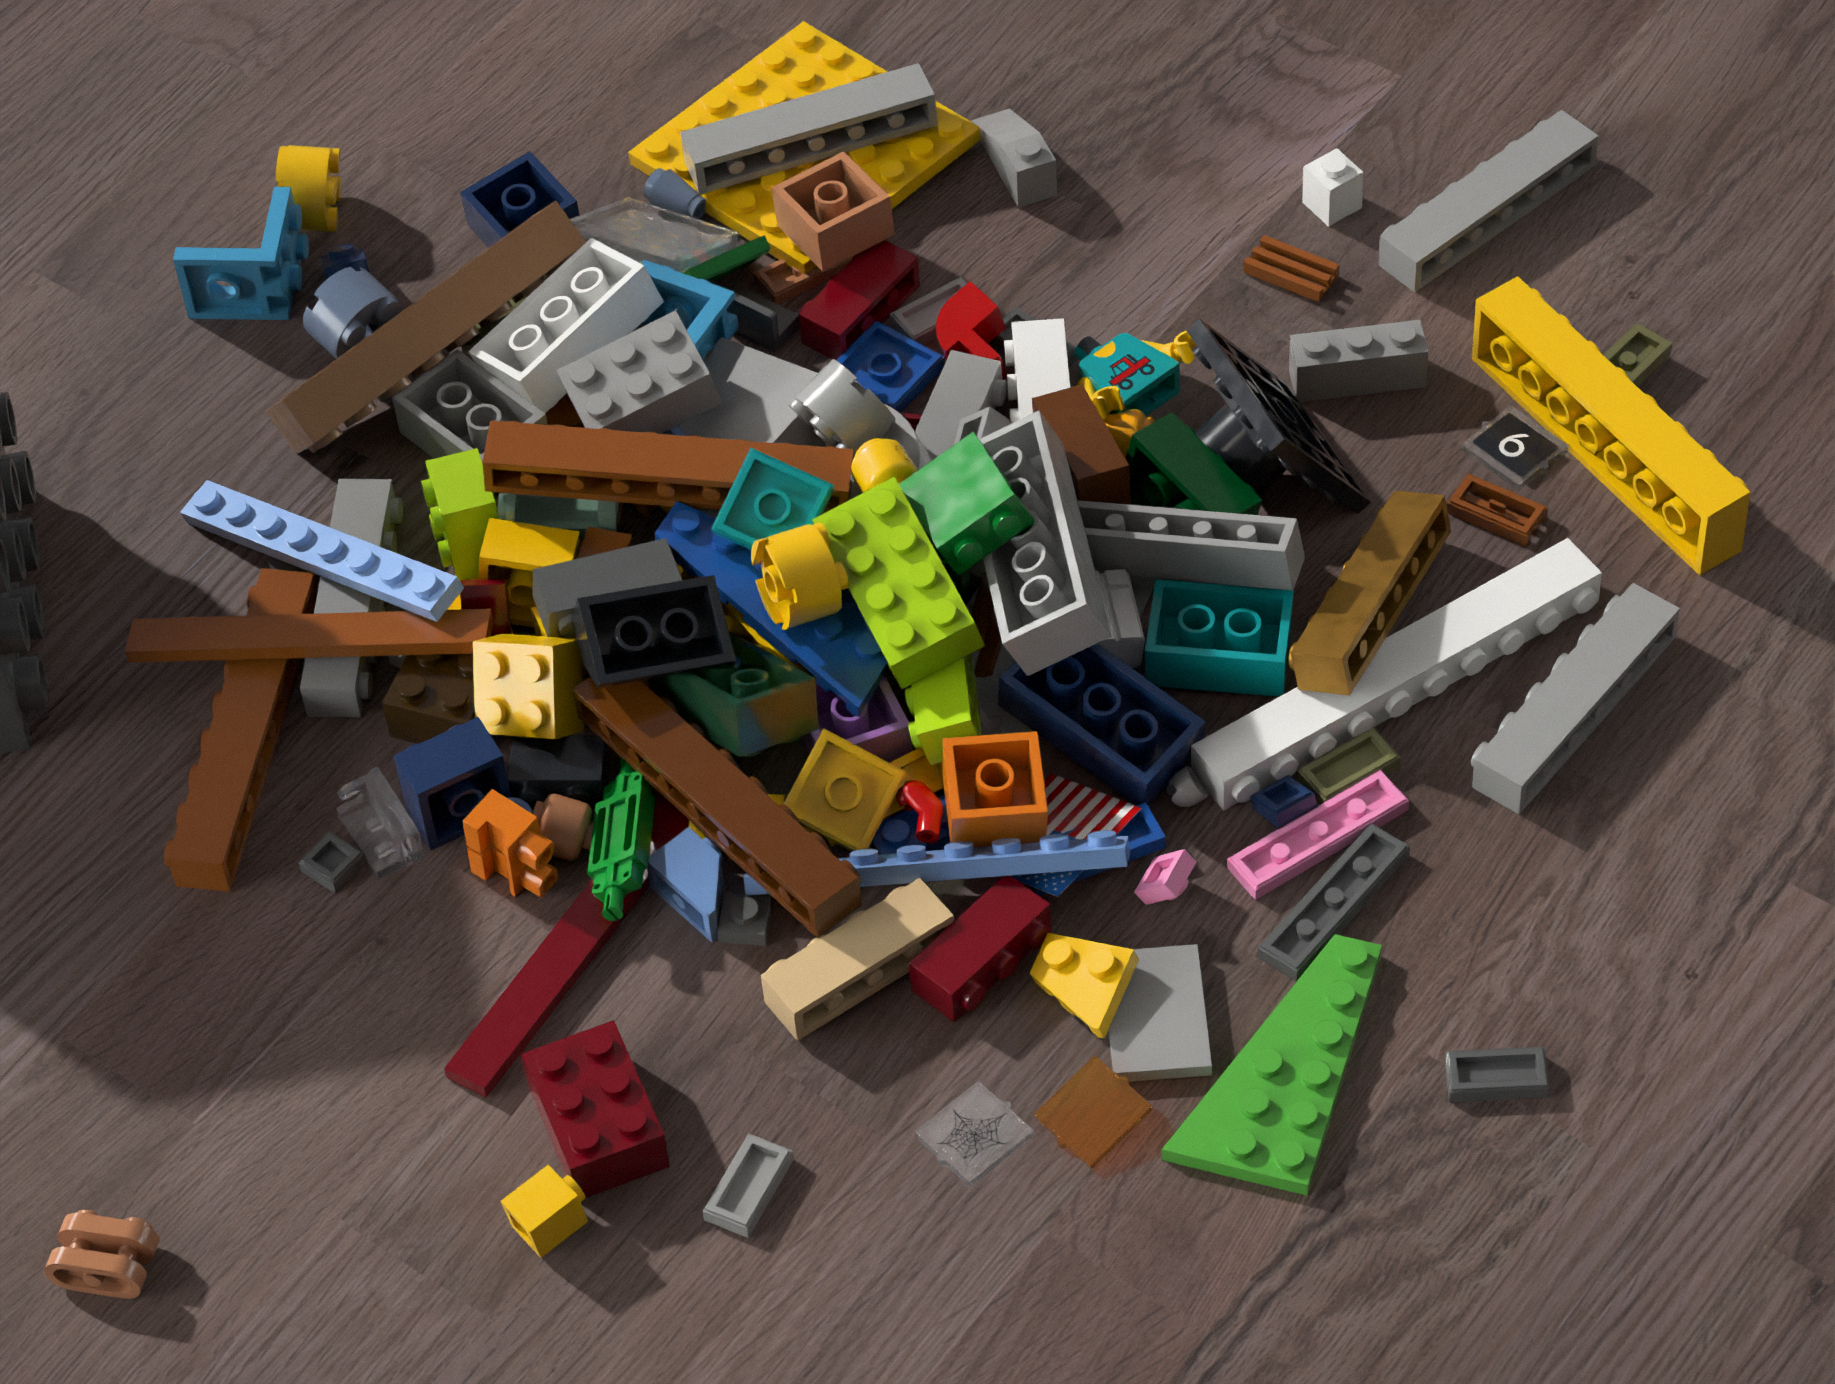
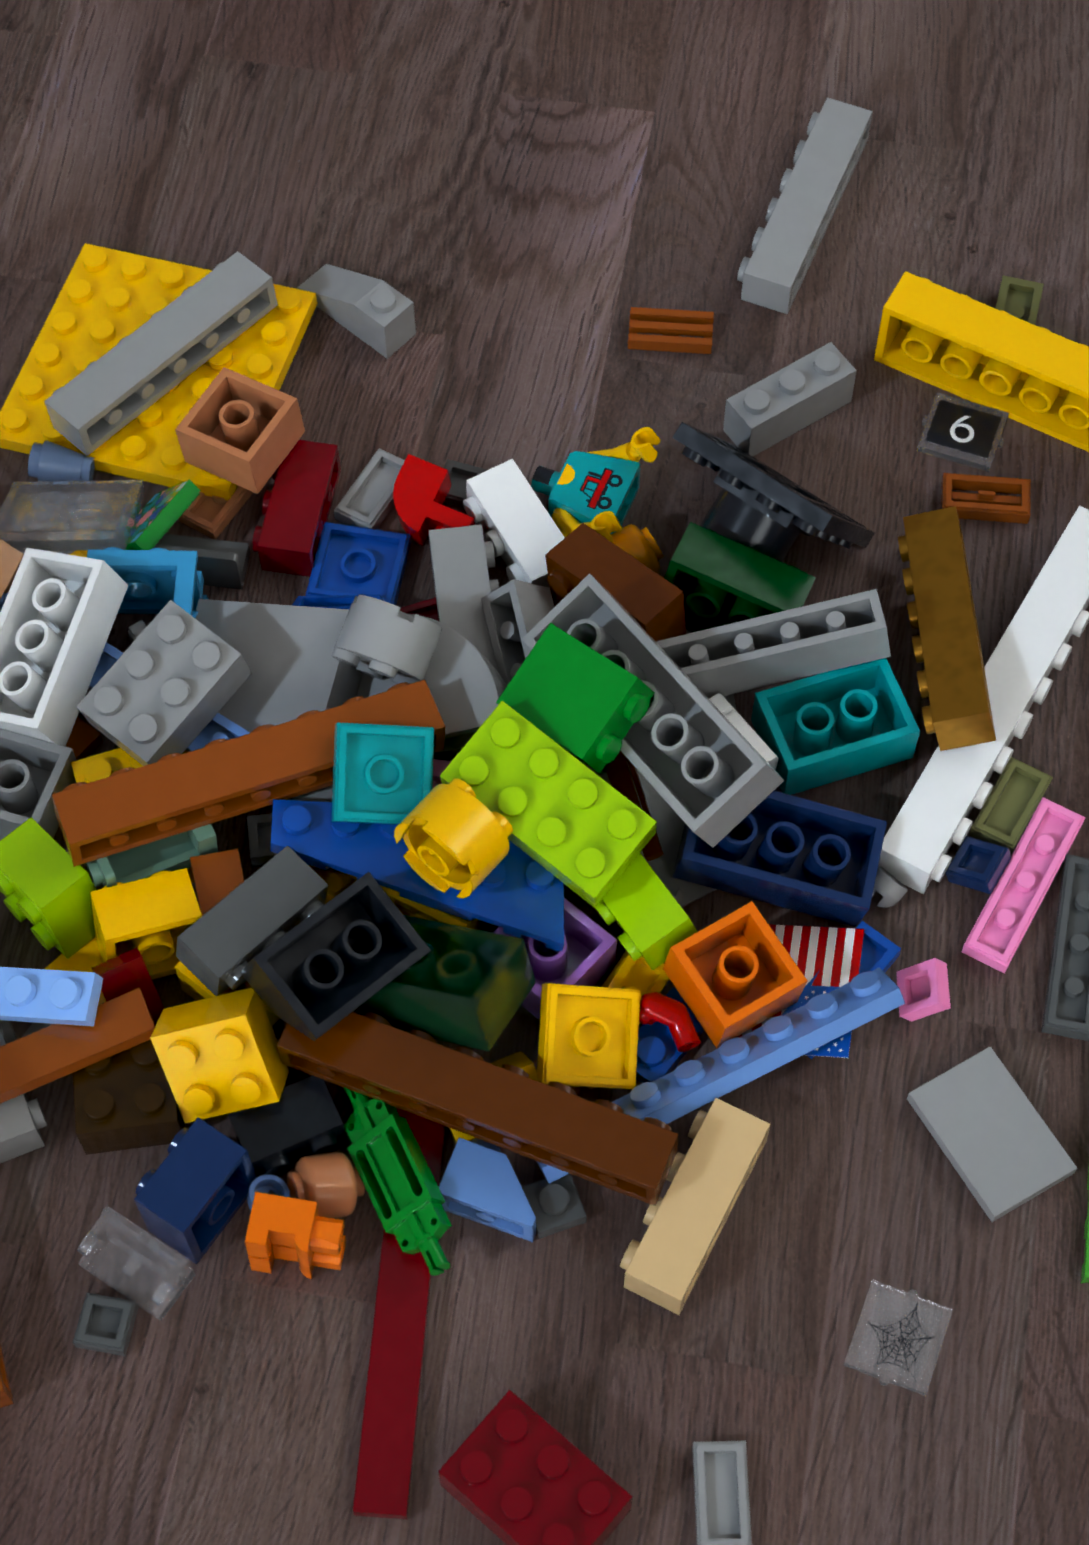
camera: 30 degrees left, 10 degrees up
(879, 461) = (465, 690): yellow head -> none
(980, 948) = (801, 1140): dark red brick -> none
(1085, 977) = (913, 1128): yellow wing -> none
(1093, 1112) = (998, 1265): clear orange piece -> none
(1332, 187) = (667, 239): white brick -> none

